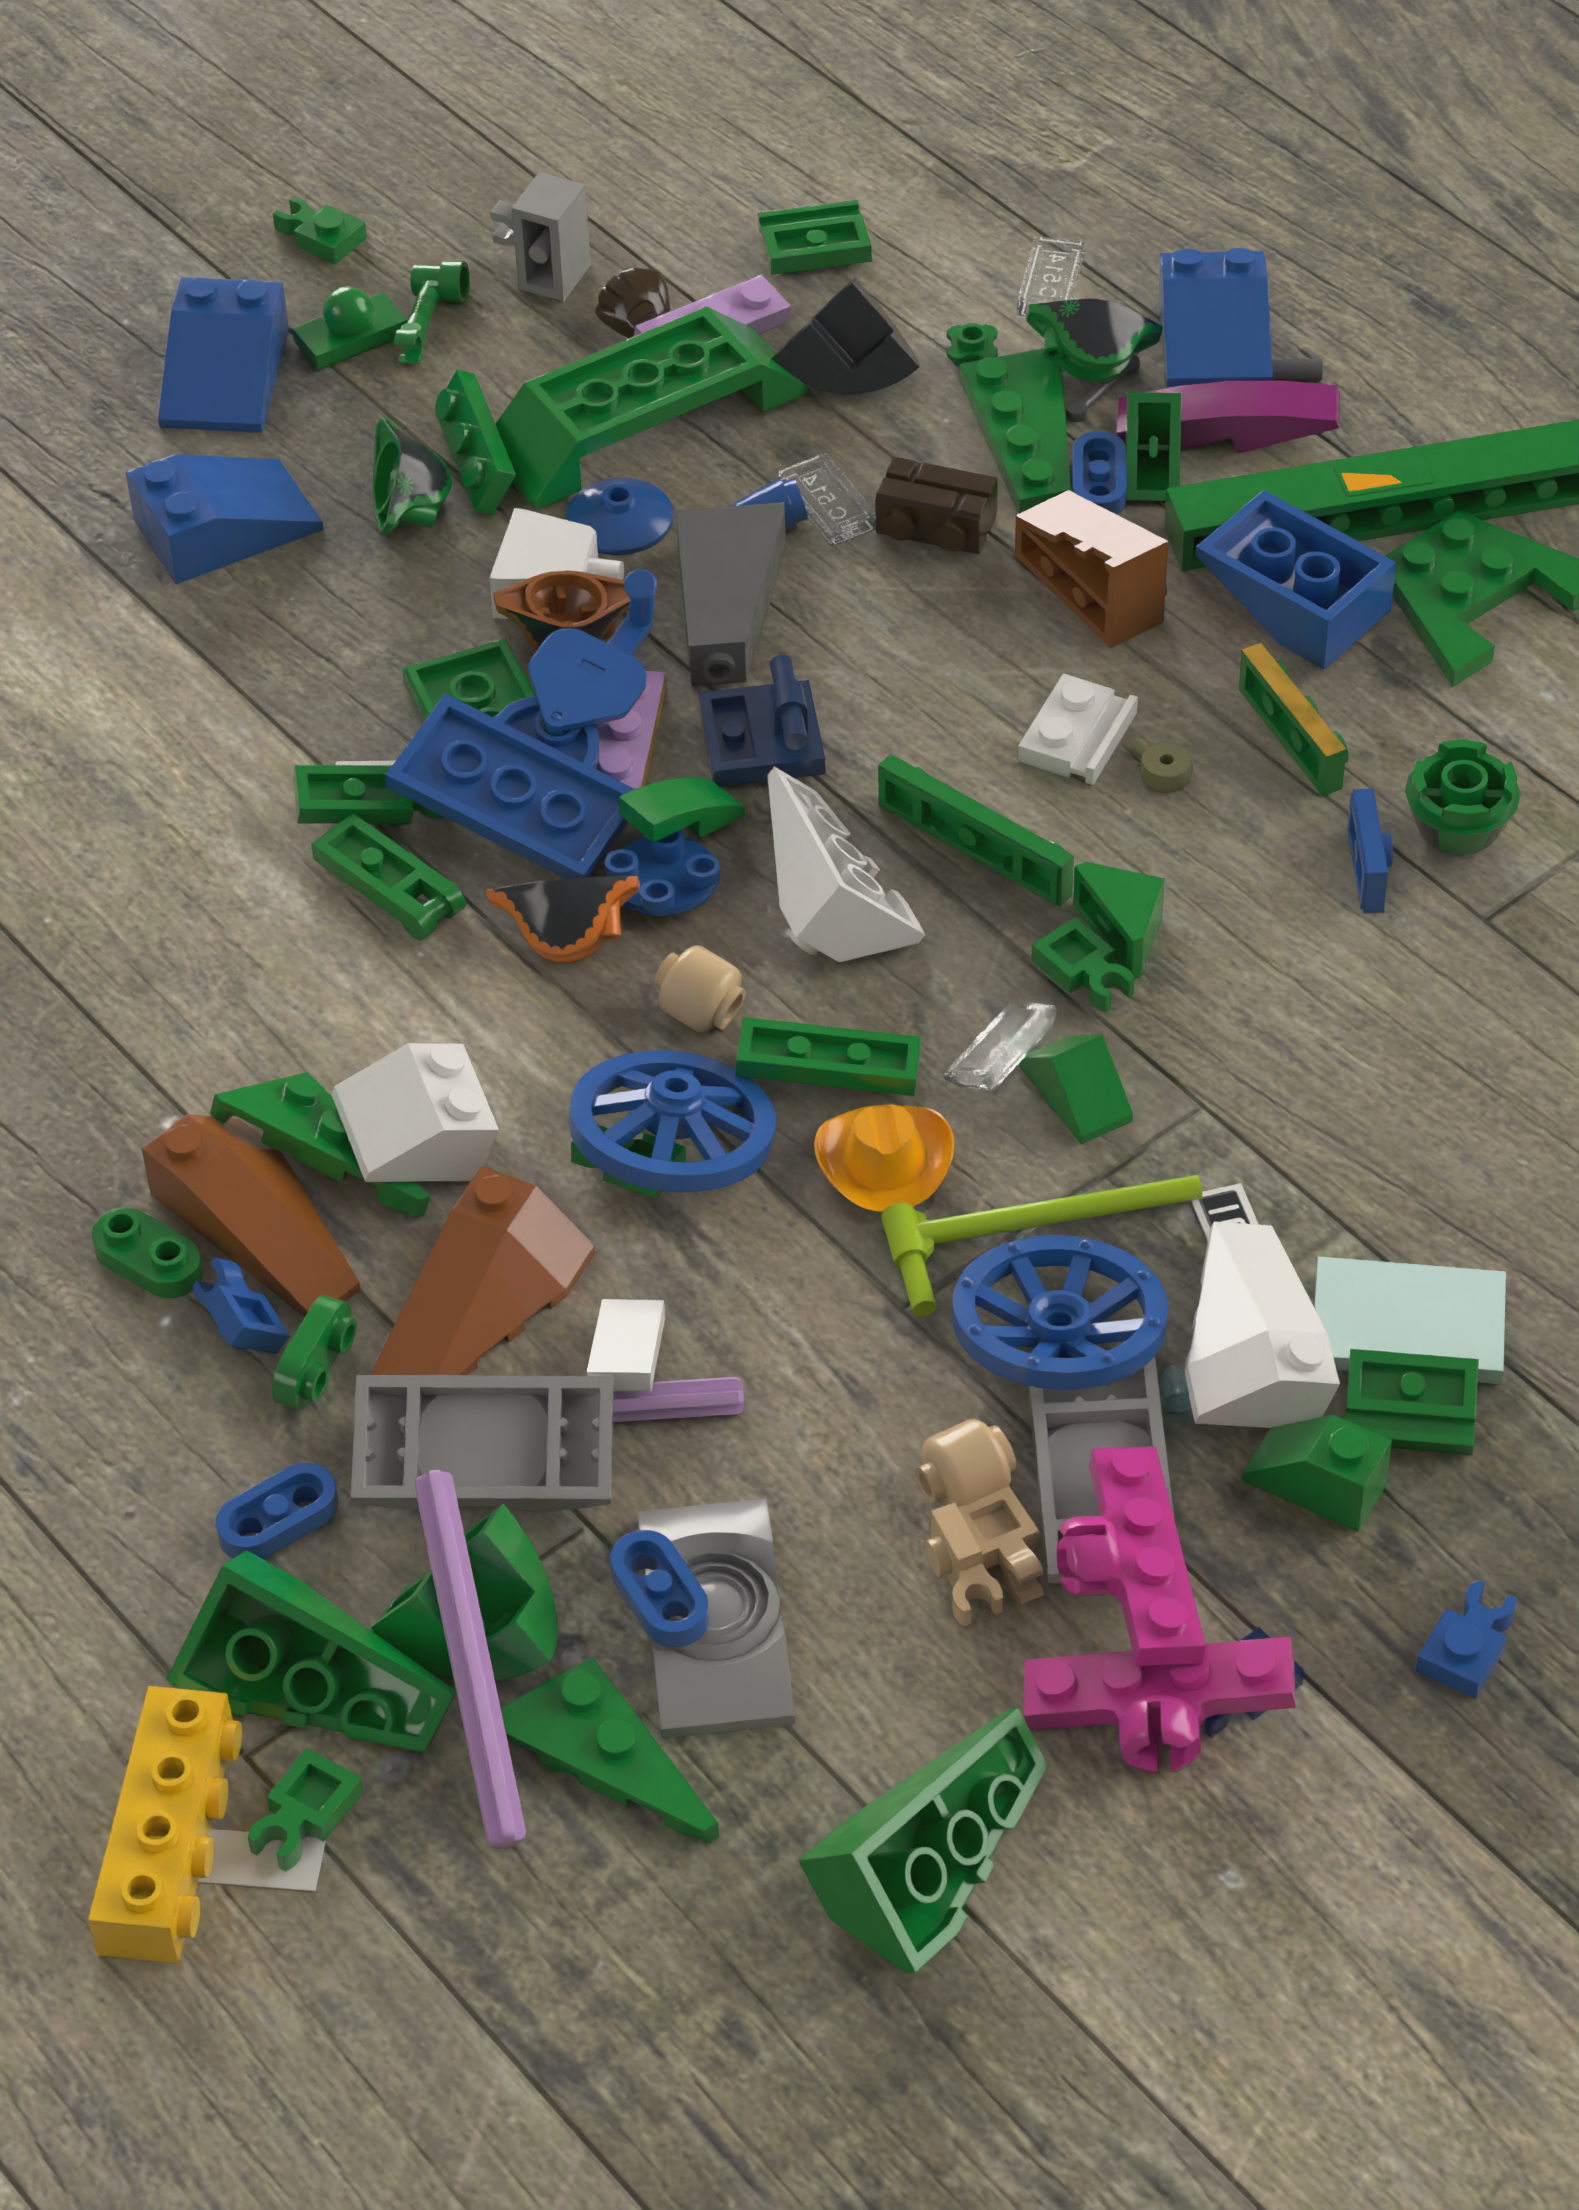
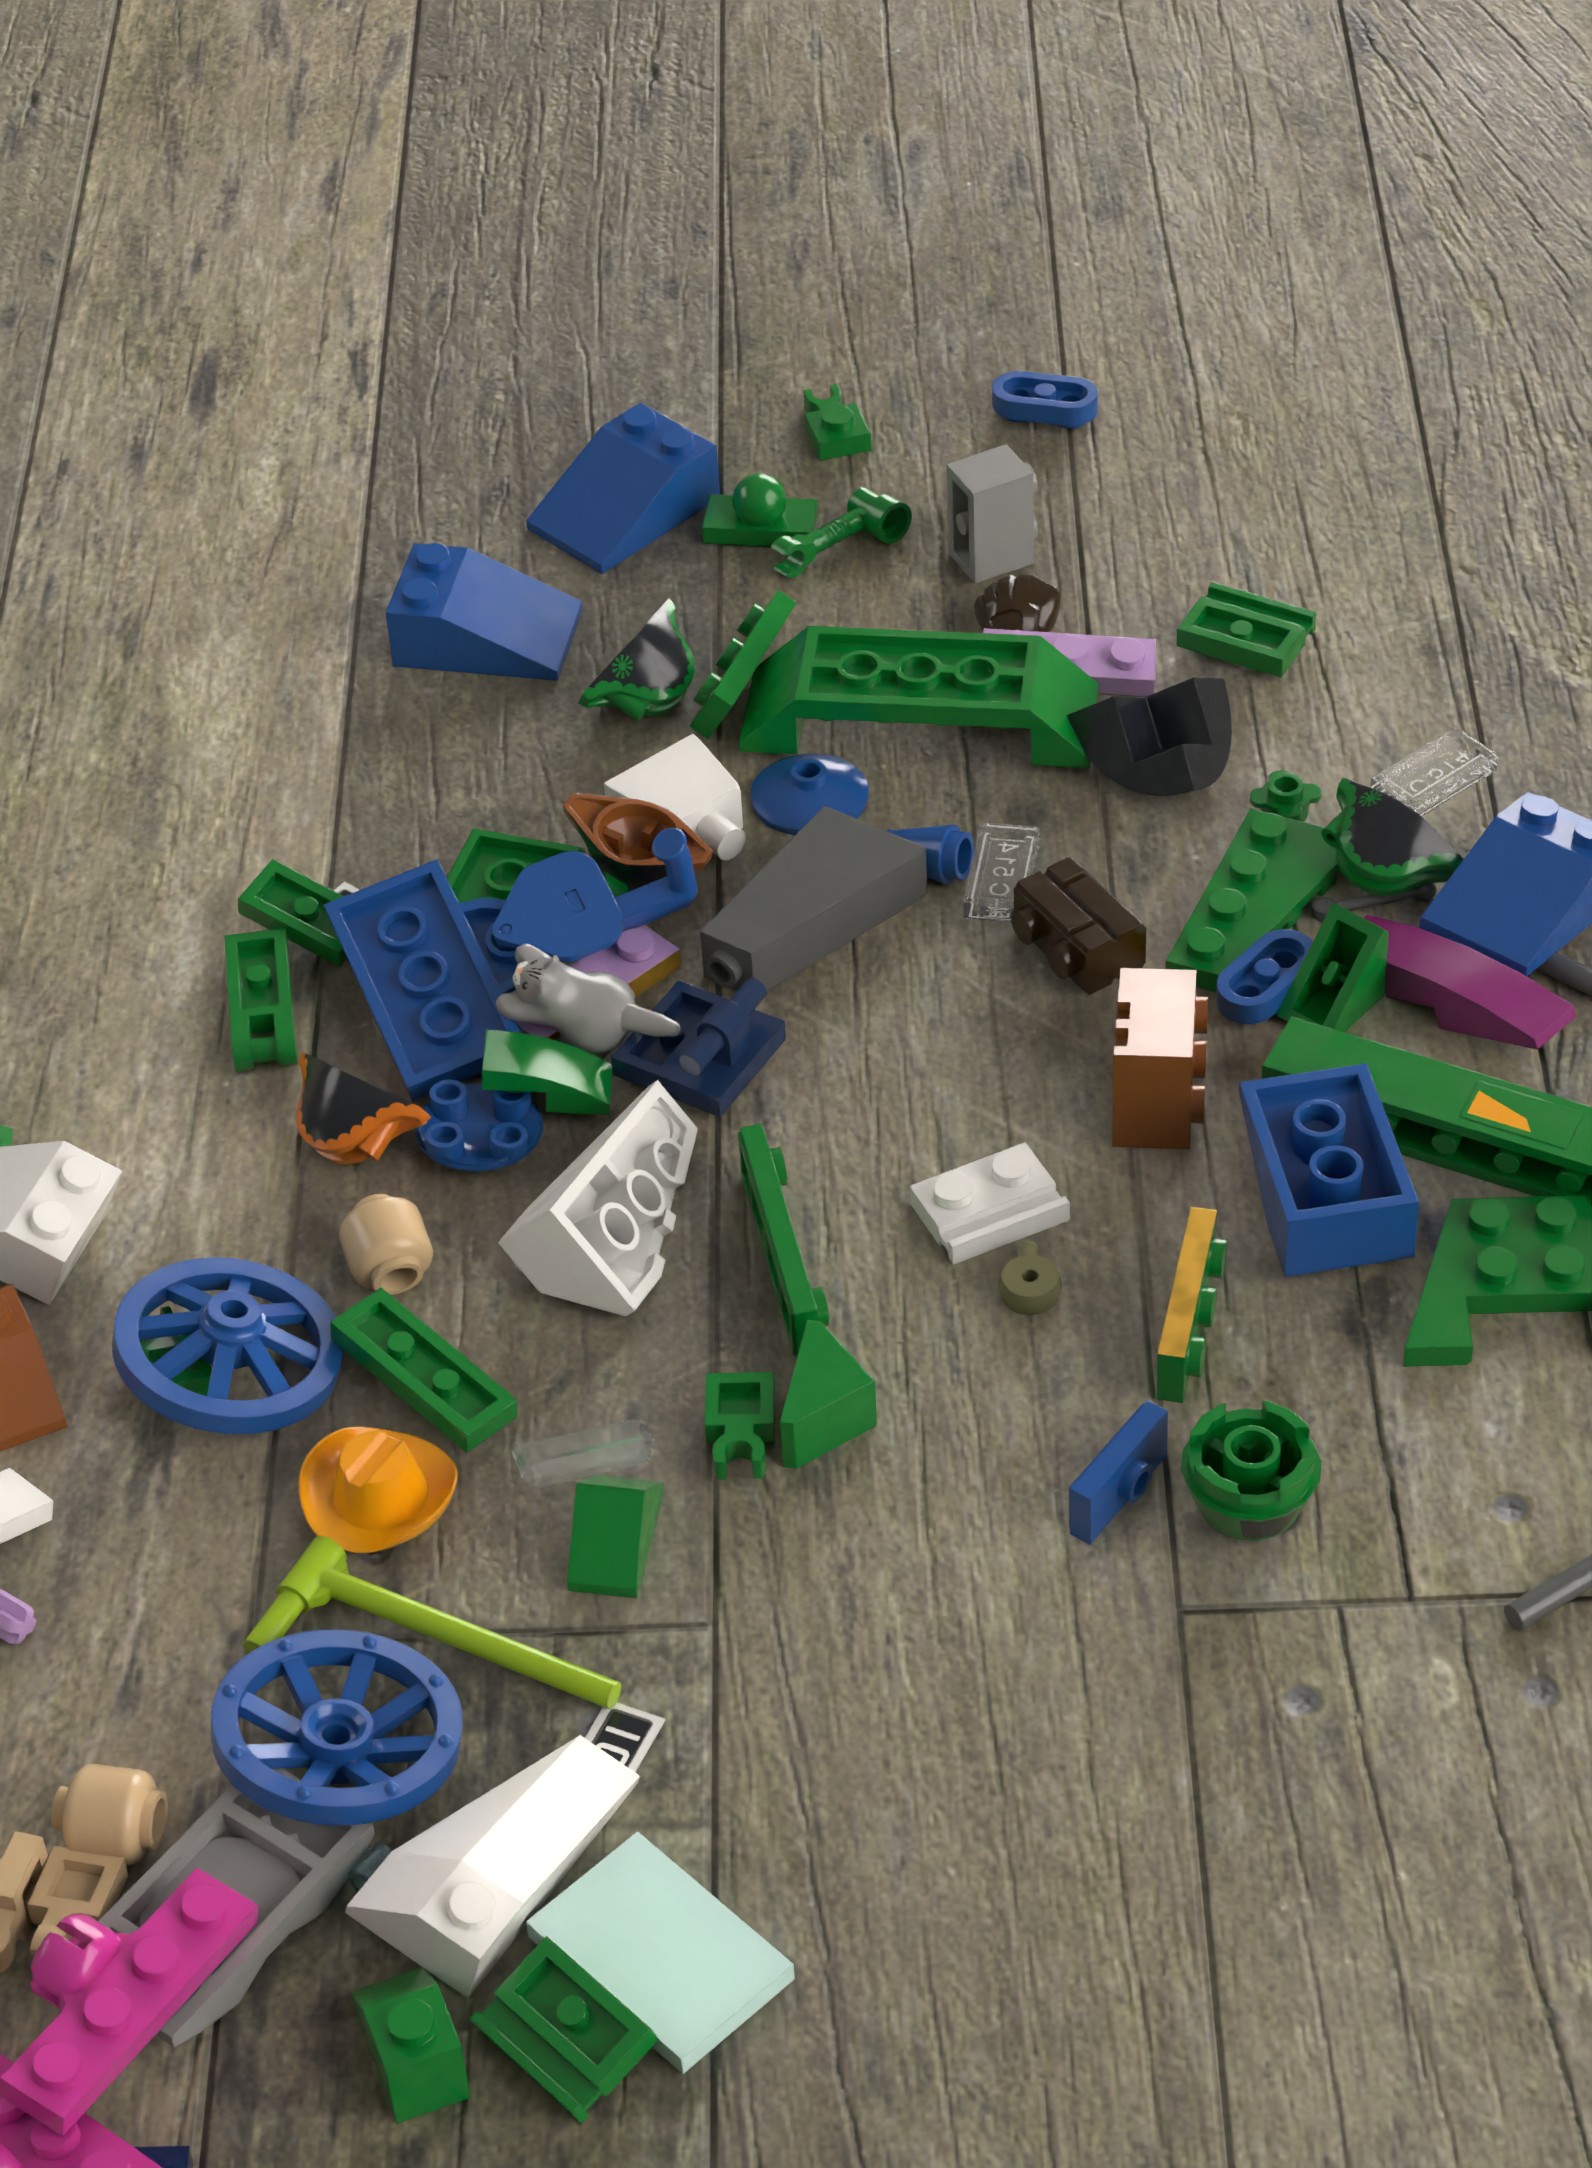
camera: 40 degrees right, 5 degrees down
(470, 133) = (1045, 398): none -> blue plate
(663, 743) = (585, 1007): none -> light grey animal

